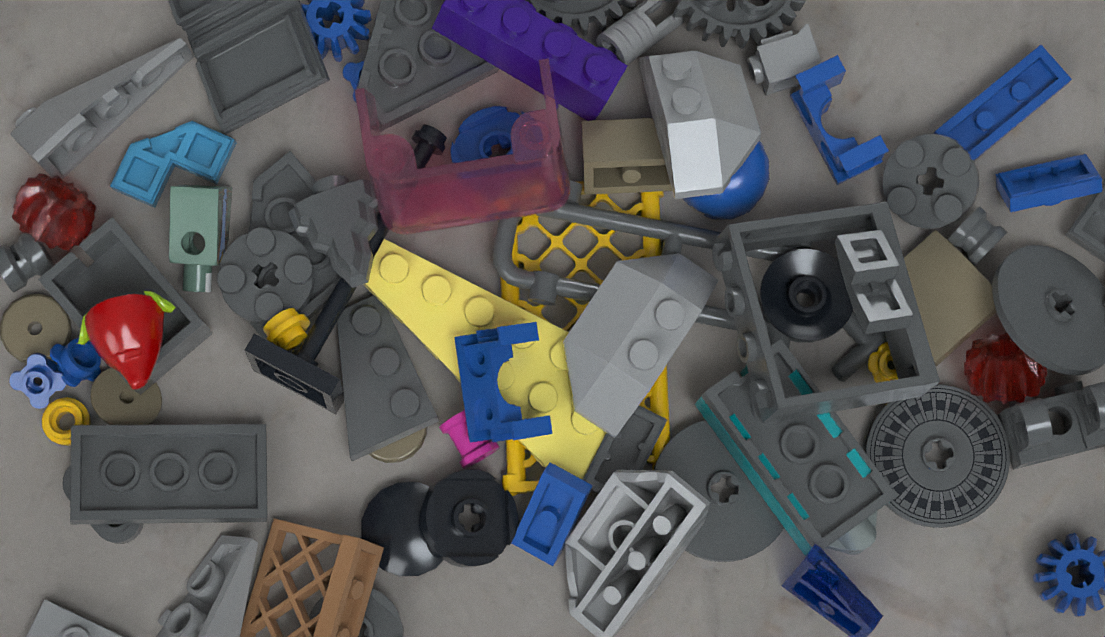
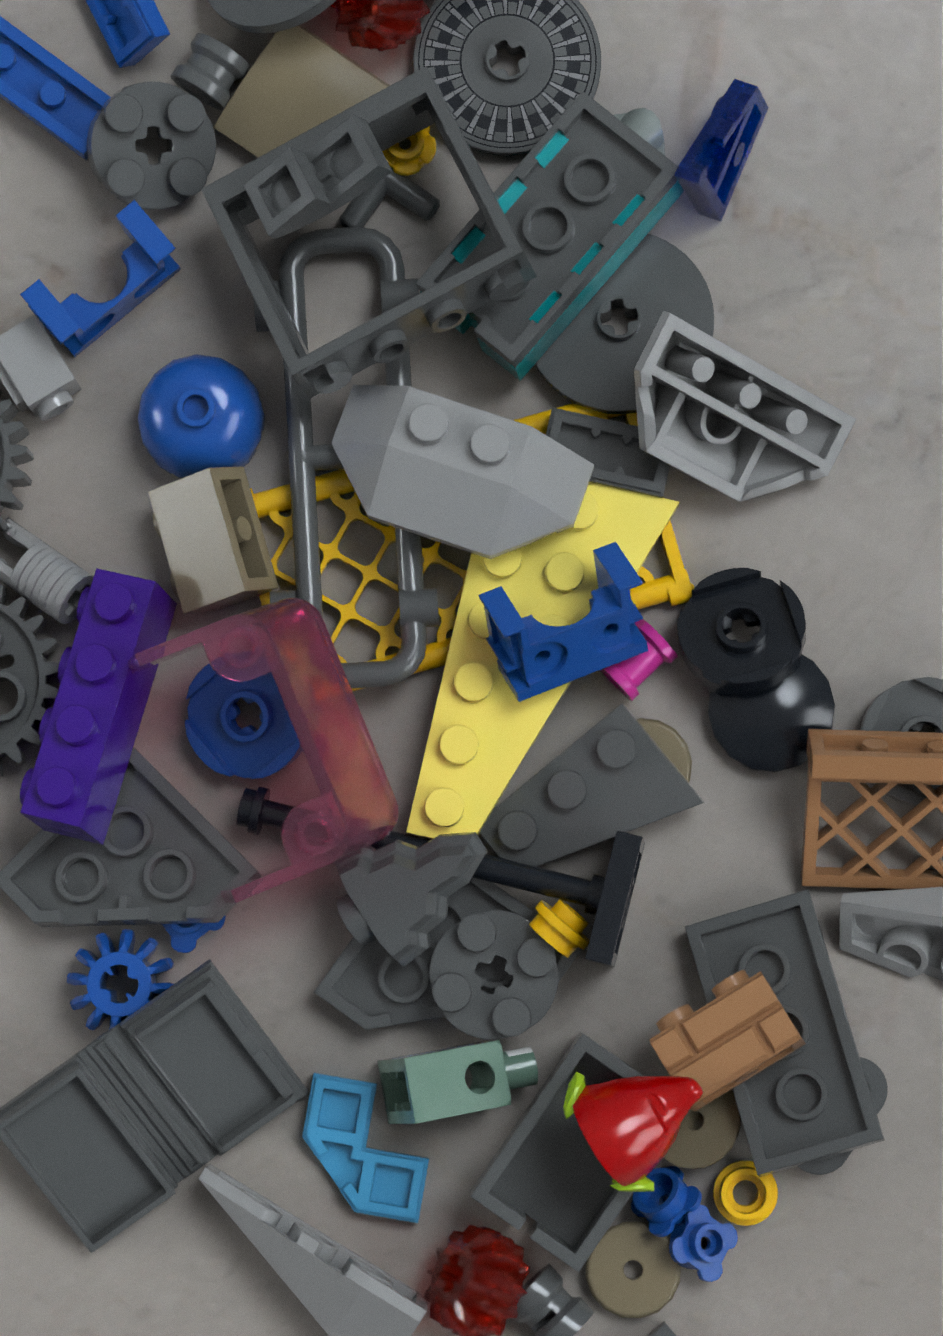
camera: 105 degrees left, 5 degrees up
(173, 427) = (727, 1037): none -> medium nougat brick
(551, 514) = (710, 524): blue plate -> none
(700, 119) = (146, 456): light grey wedge -> none
(812, 274) = (319, 251): black dish -> none

